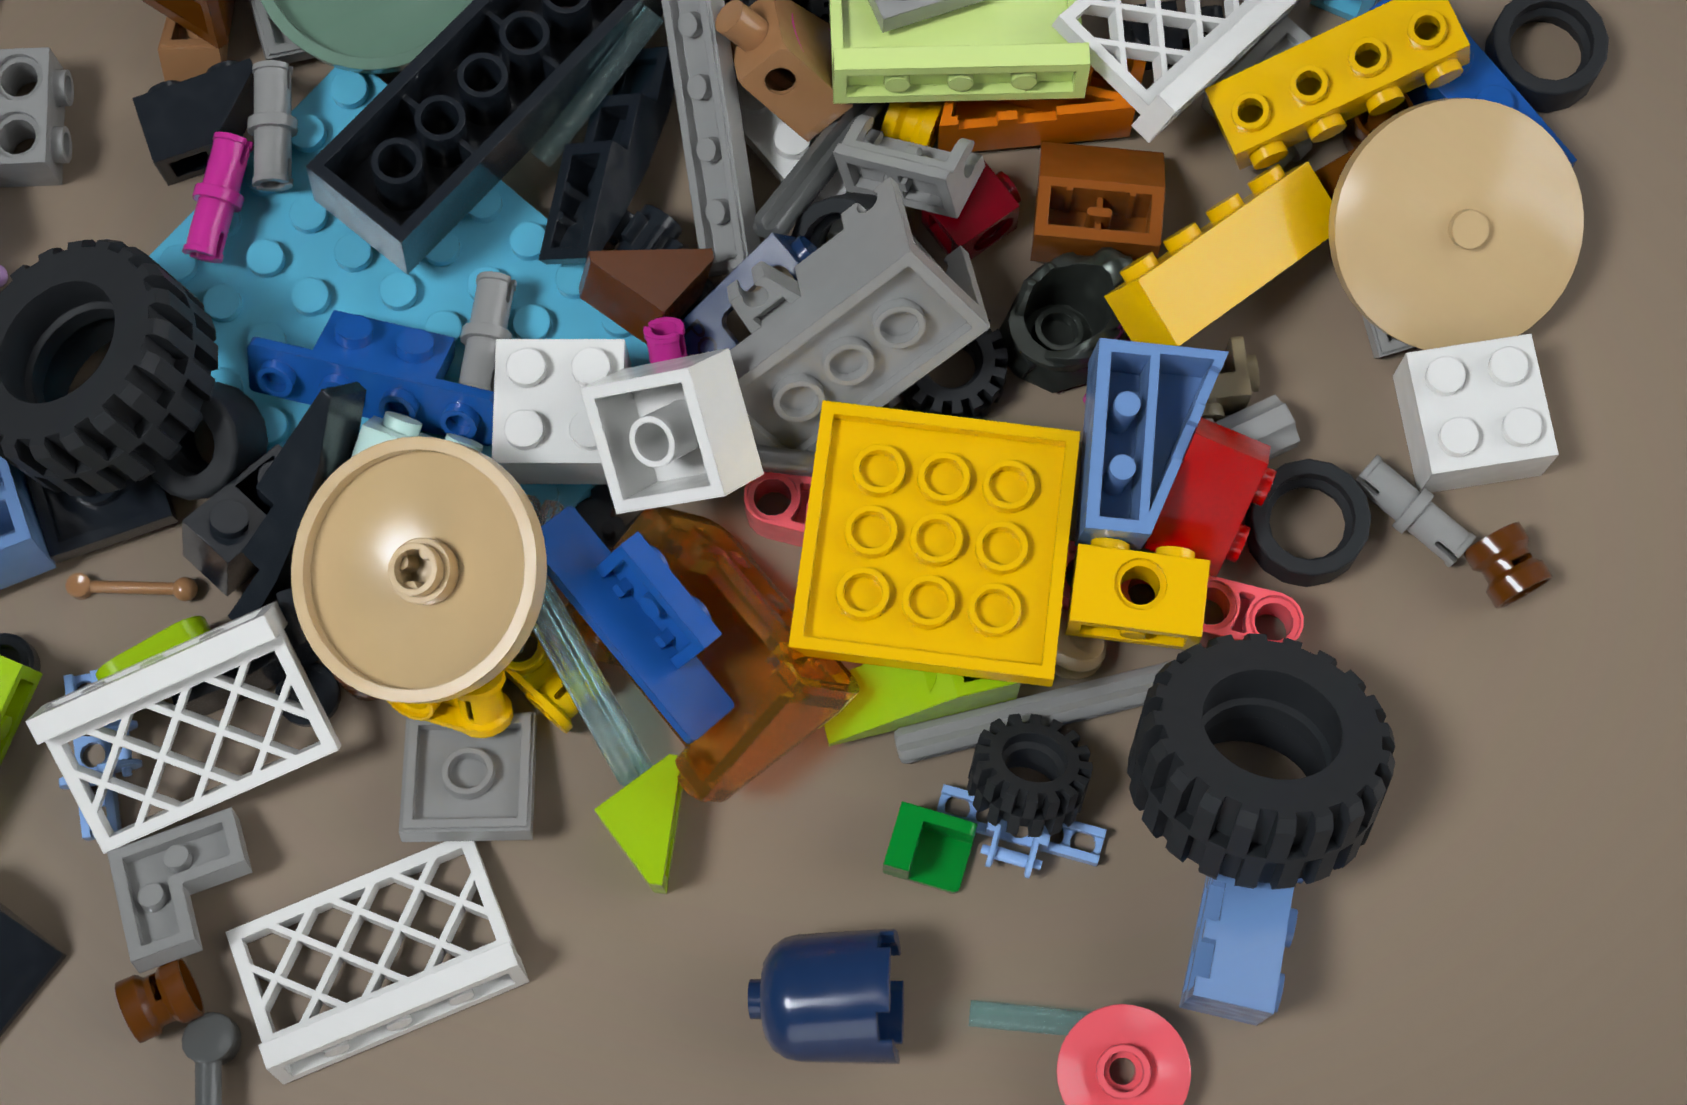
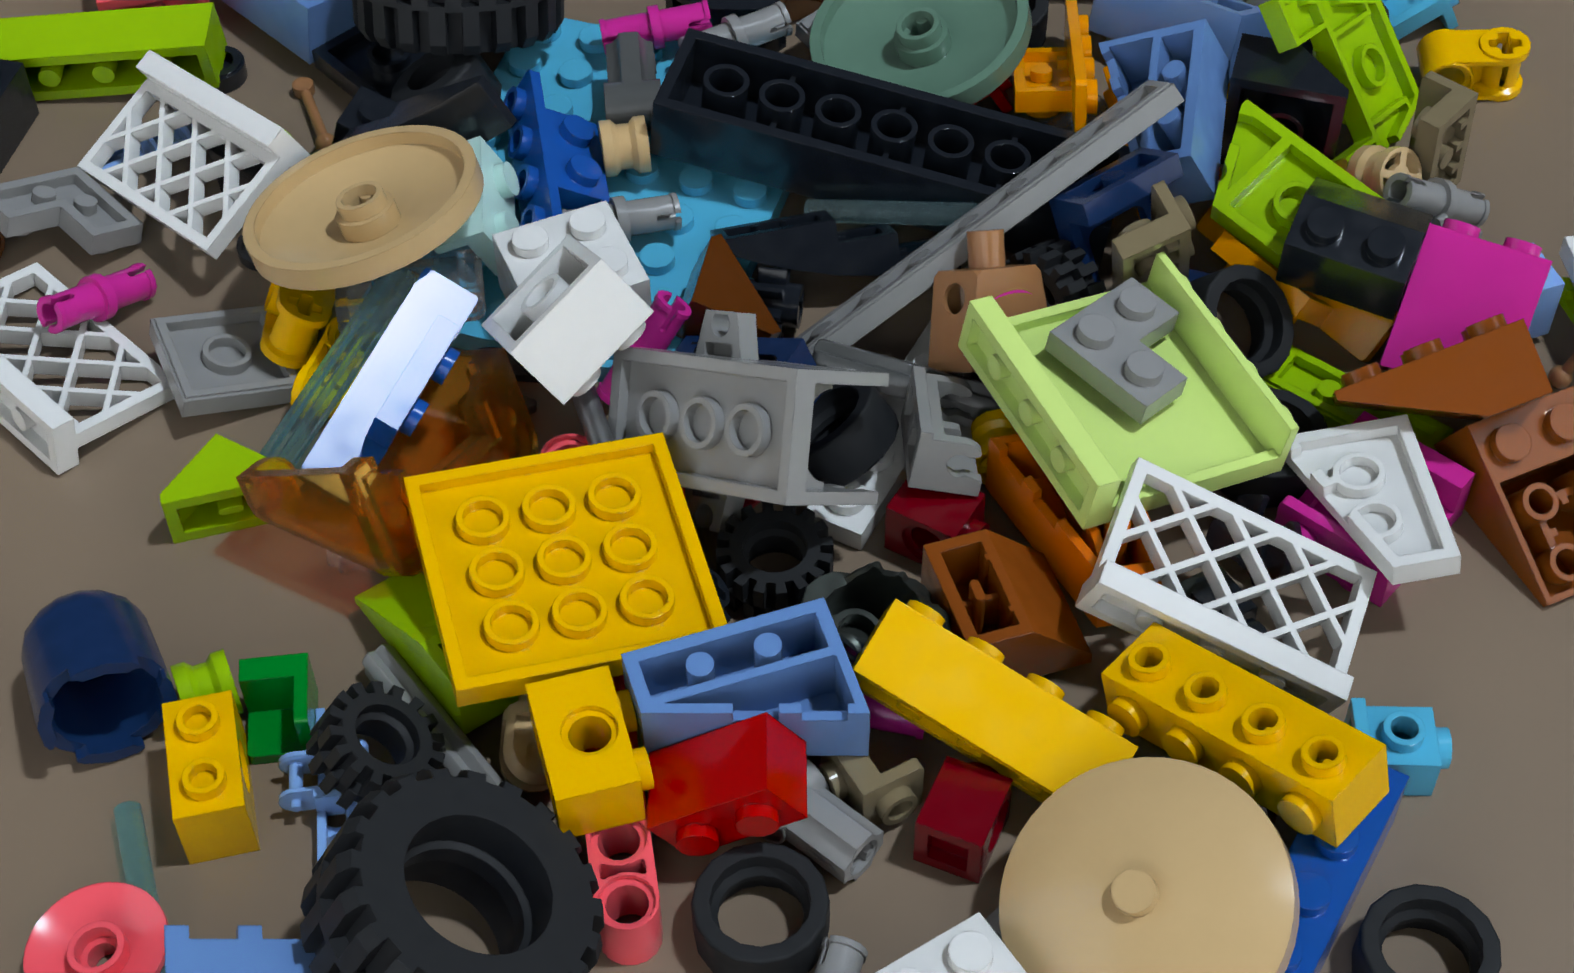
camera: 65 degrees right, 25 degrees down
(317, 260) = (631, 79): none -> dark grey piece
(330, 880) = (96, 298): none -> dark pink pin
(389, 292) = (625, 146): none -> tan wheel
(880, 903) = (205, 678): none -> lime wheel
(985, 927) = (210, 777): none -> yellow brick
(1284, 326) = (962, 818): none -> dark red brick

